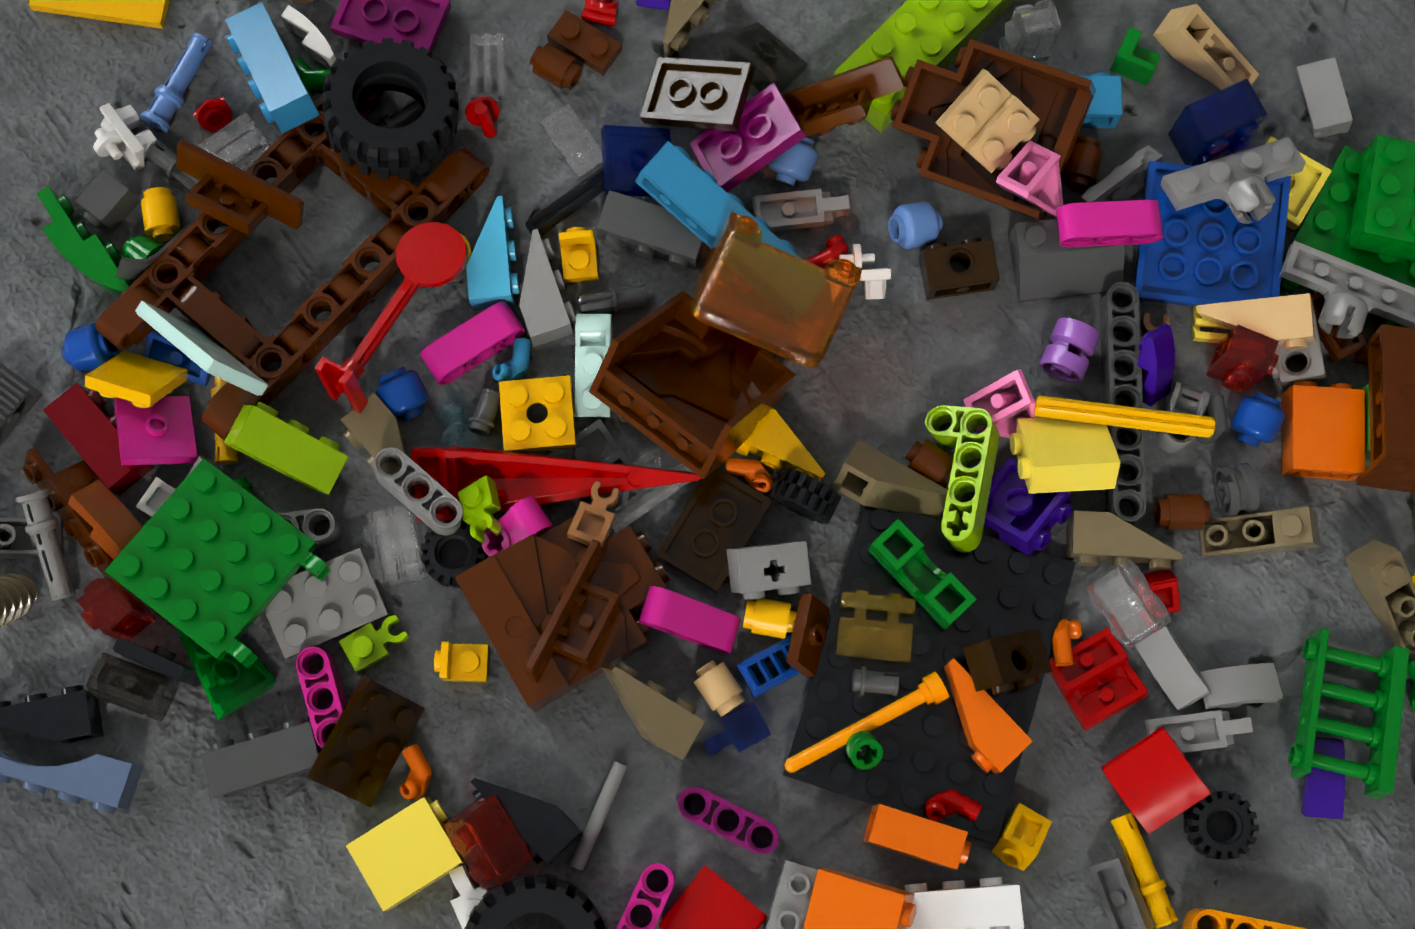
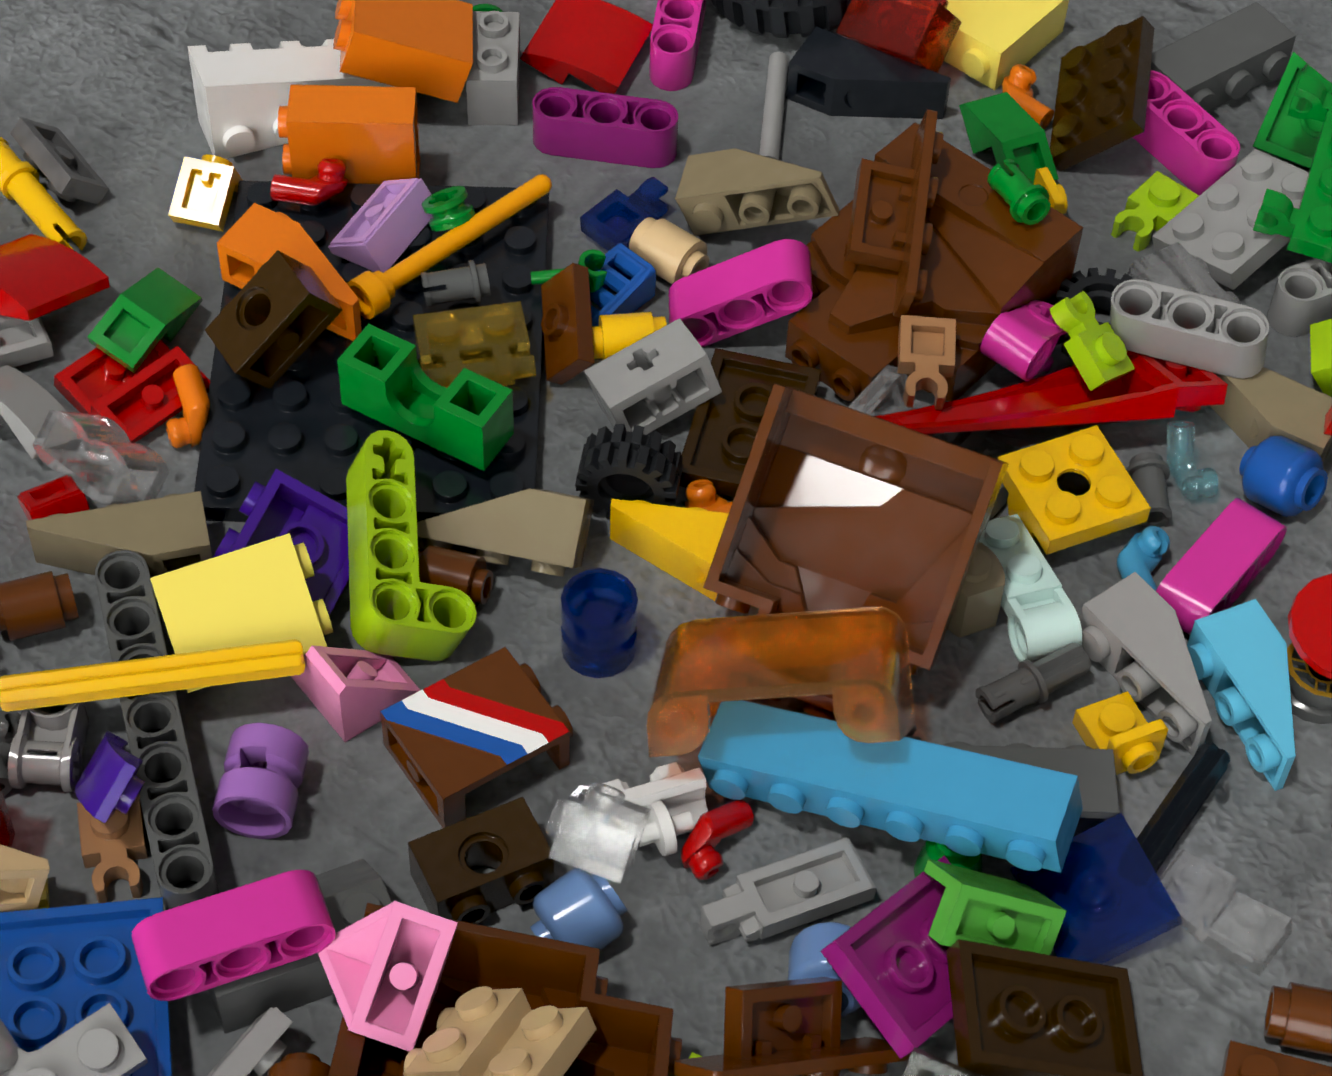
camera: 160 degrees right, 25 degrees down
(447, 725) = (1008, 130): none -> green slope
(489, 603) = (1027, 201): none -> green pin
(708, 148) = (992, 911): none -> bright green panel
(793, 675) = (591, 258): none -> green hand
(853, 398) = (599, 623): none -> clear blue wheel
(897, 249) = (597, 831): none -> clear brick
(909, 758) = (384, 225): none -> lavender slope
(941, 347) = (473, 731): none -> reddish brown panel
(1081, 718) = (142, 316): none -> green slope

